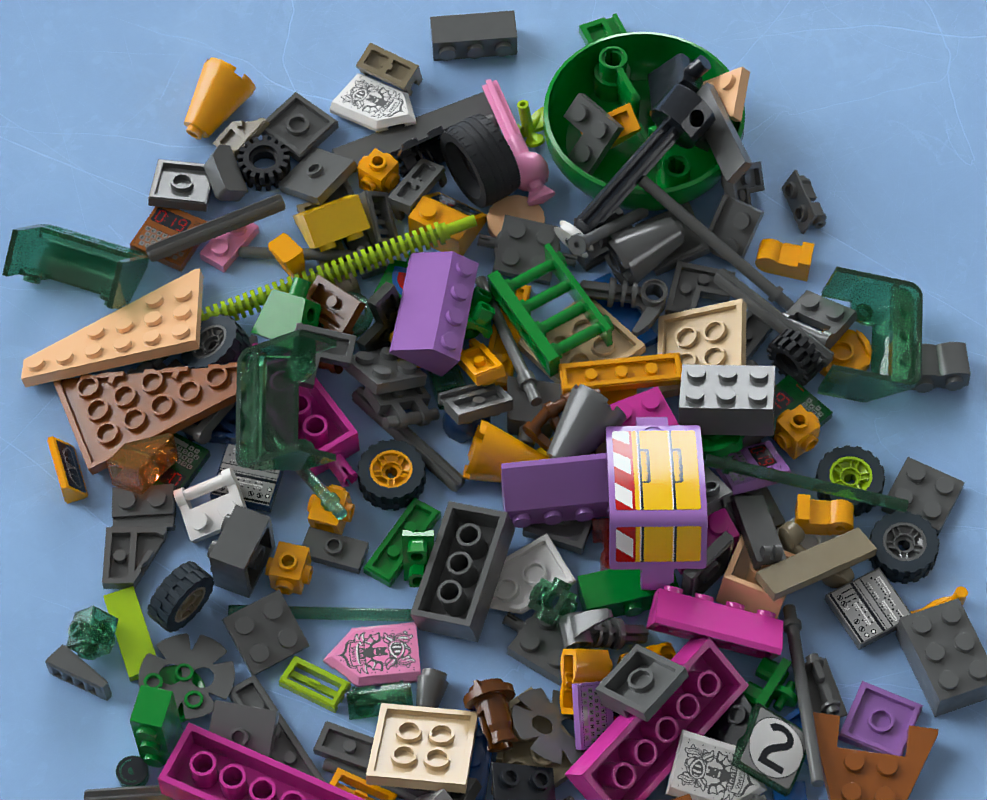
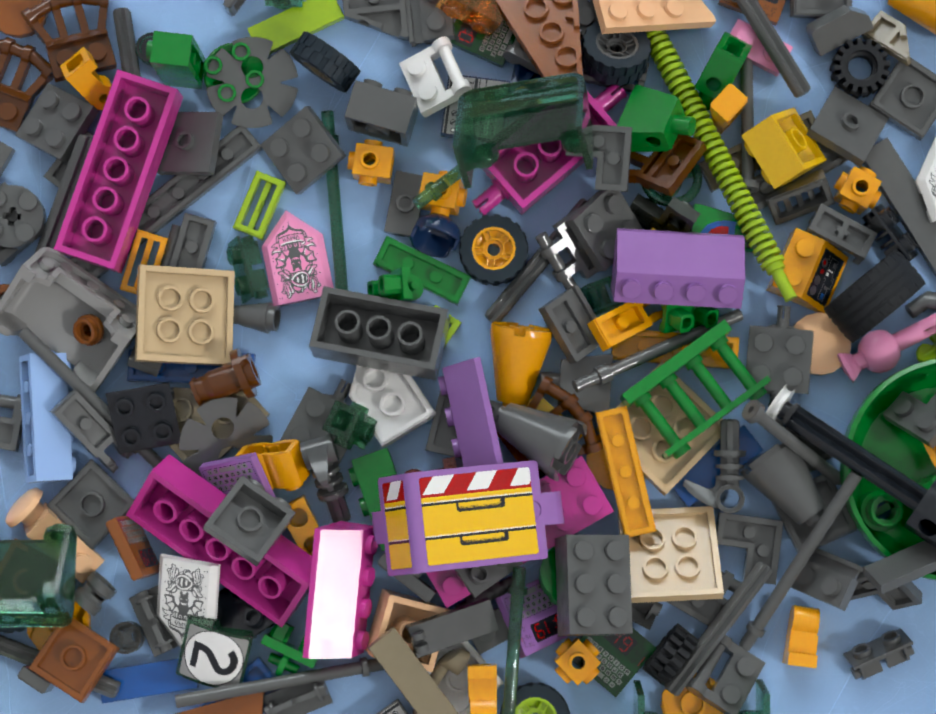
camera: 85 degrees right, 25 degrees up
(248, 262) = (722, 67): none -> green torso
(369, 520) = (435, 235): none -> dark blue hair

